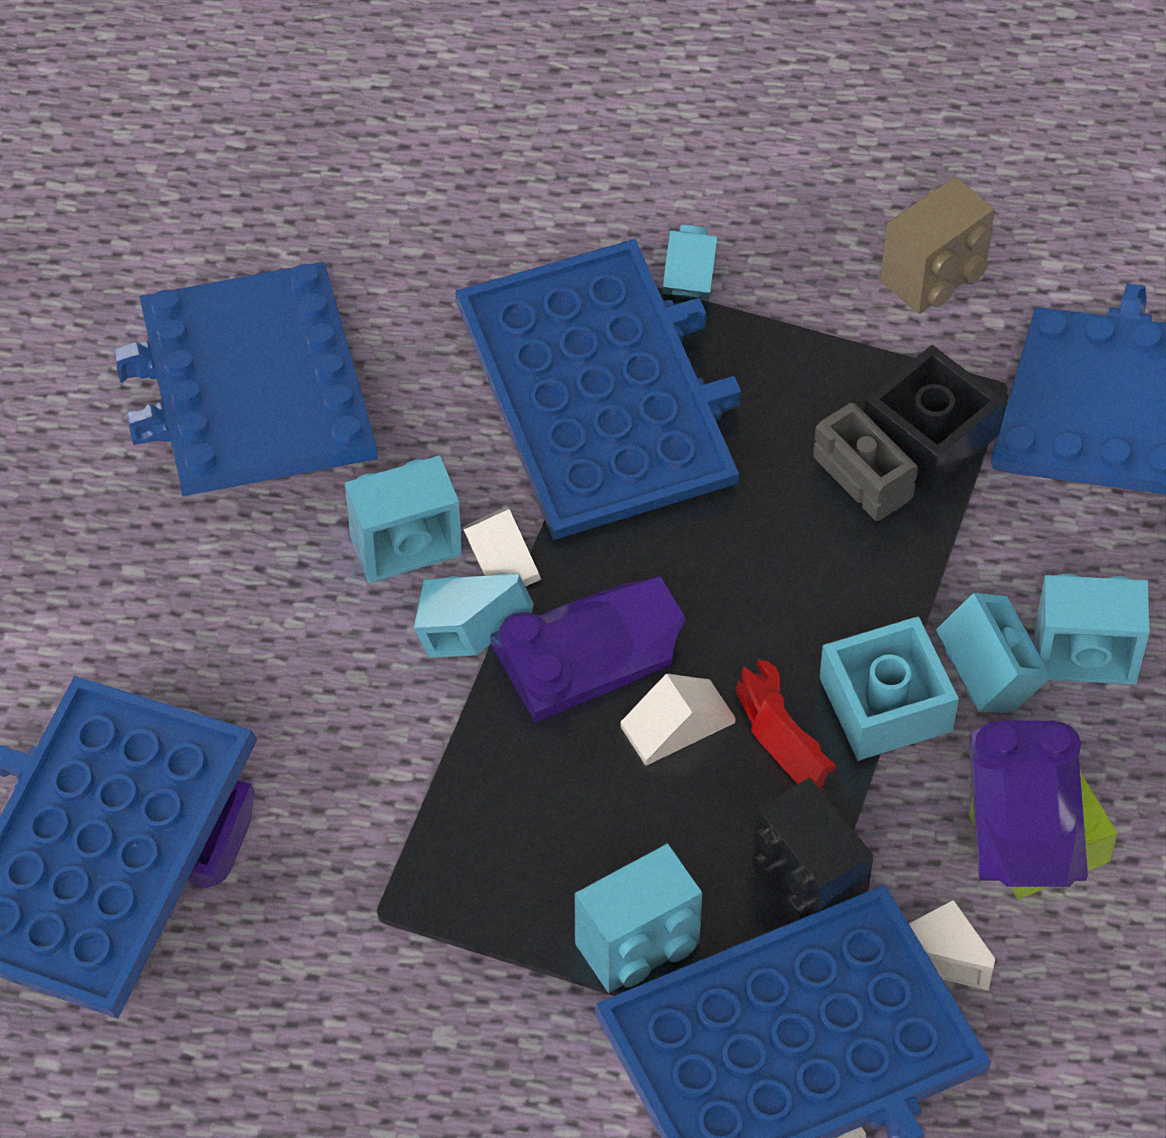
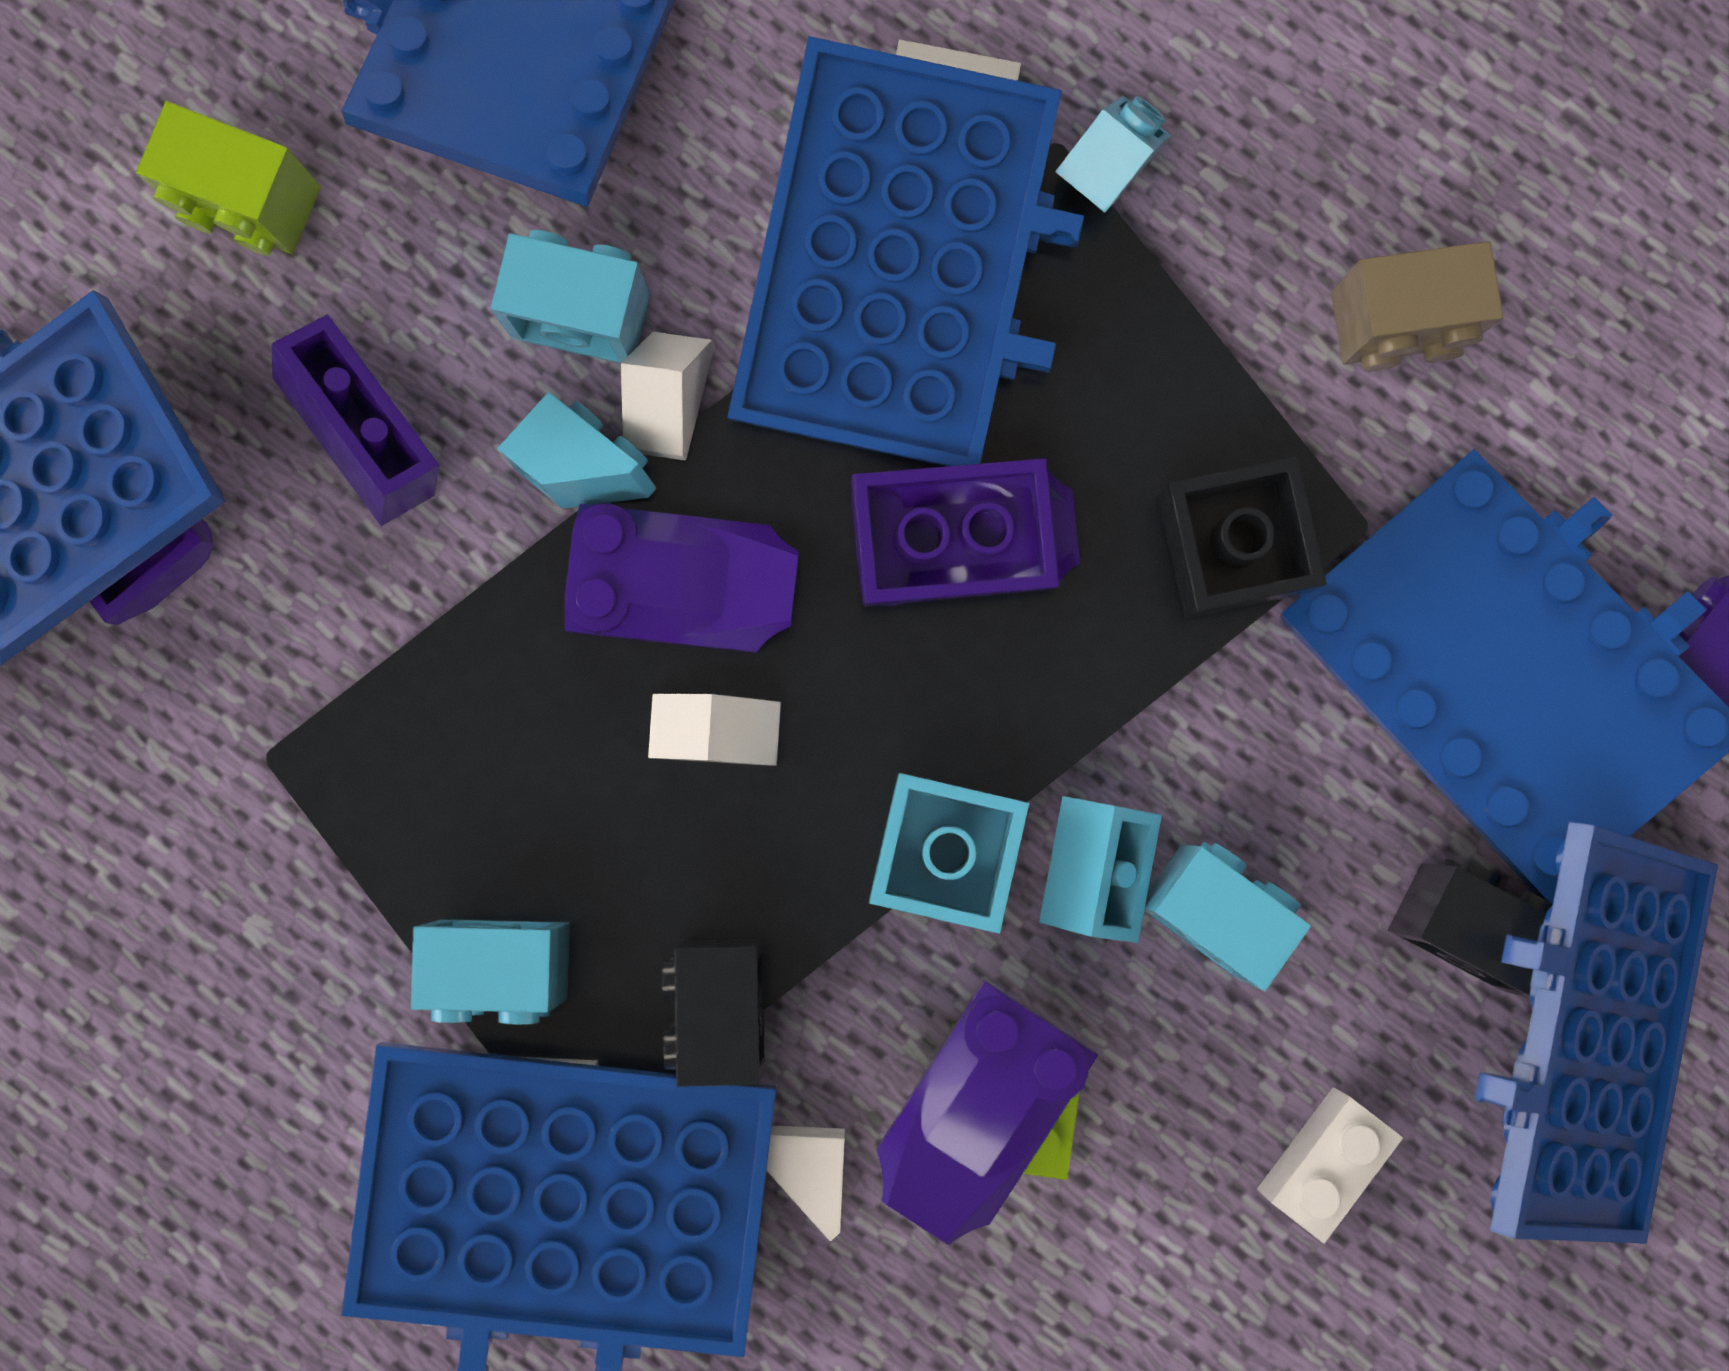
camera: 30 degrees right, 30 degrees up
(121, 572) = (228, 180): none -> lime brick
(302, 669) = (354, 419): none -> dark purple brick
(748, 513) = (962, 531): none -> dark purple slope
(776, 730) = (808, 779): red arm -> none
(865, 461) = (1124, 548): dark grey brick -> none

